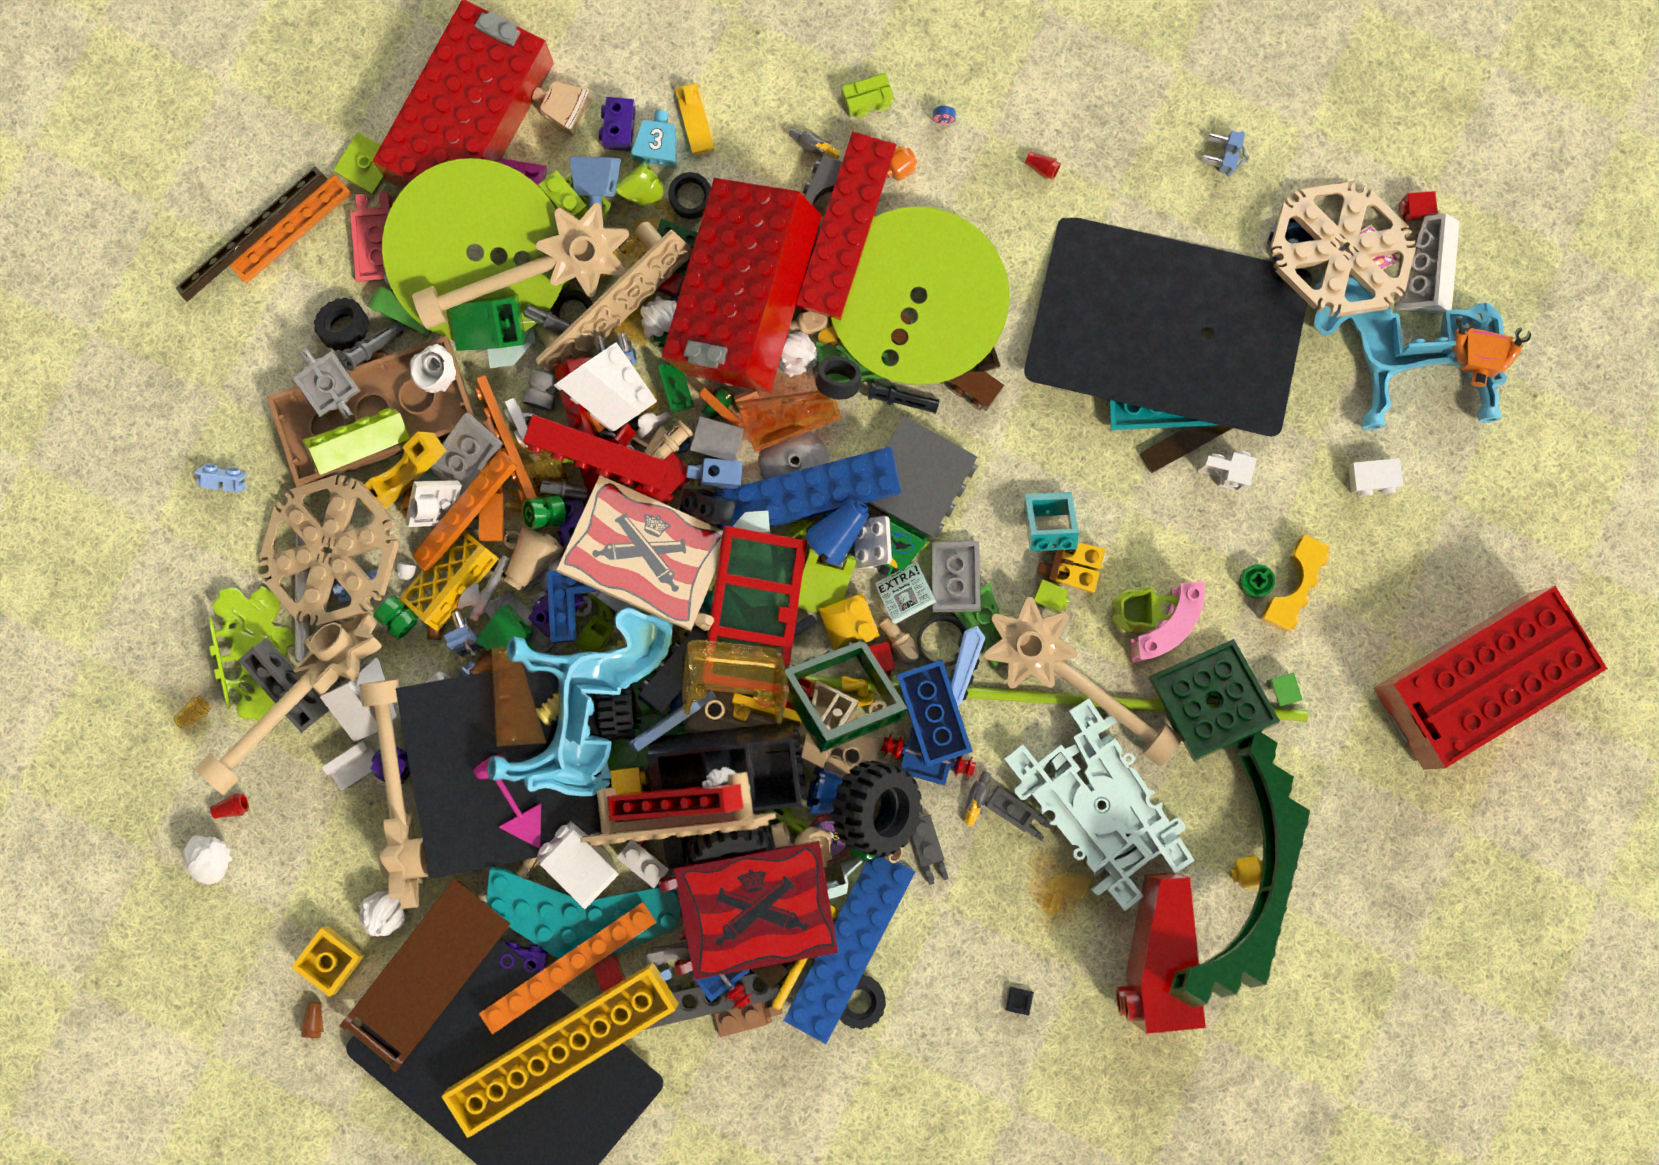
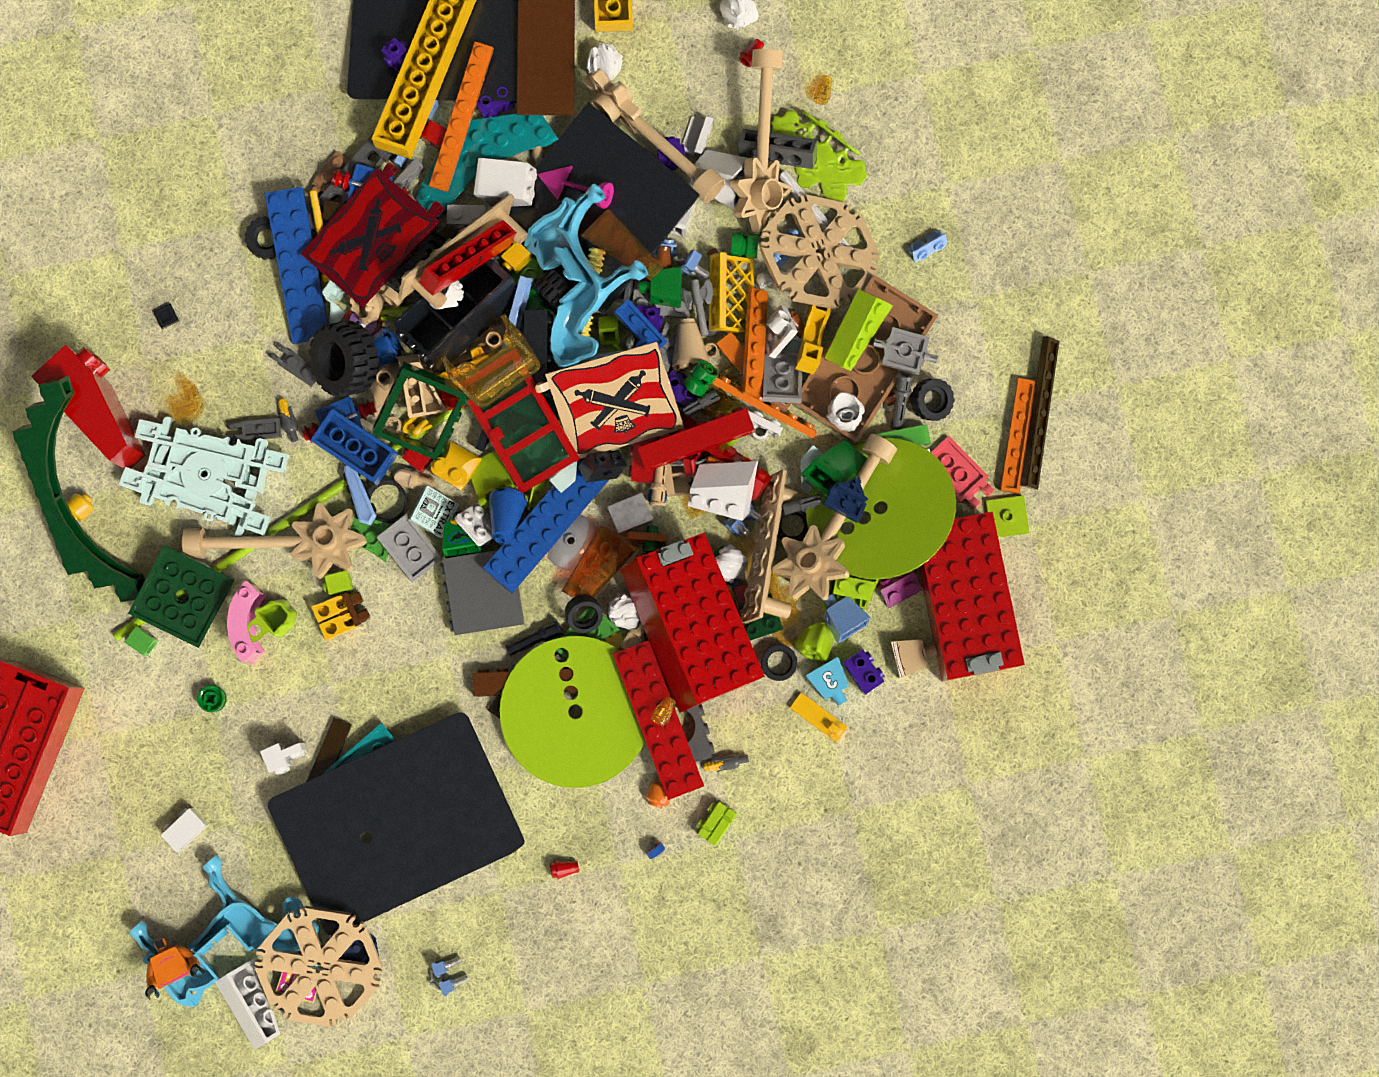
camera: 145 degrees right, 0 degrees up
(499, 279) = (847, 499): none -> dark blue slope
(540, 391) = (770, 457): light grey wheel -> none
(585, 1079) = (394, 53): none -> dark purple brick
(649, 423) = (683, 493): white rock -> none
(675, 388) = (684, 526): green hinge -> none
(726, 473) = (607, 495): medium blue torso -> none
(835, 223) = (663, 712): none -> clear yellow cone
(1051, 505) = (383, 643): teal window -> none
(1308, 557) = (179, 693): yellow arch -> none
(1418, 205) = (290, 1039): red brick -> none

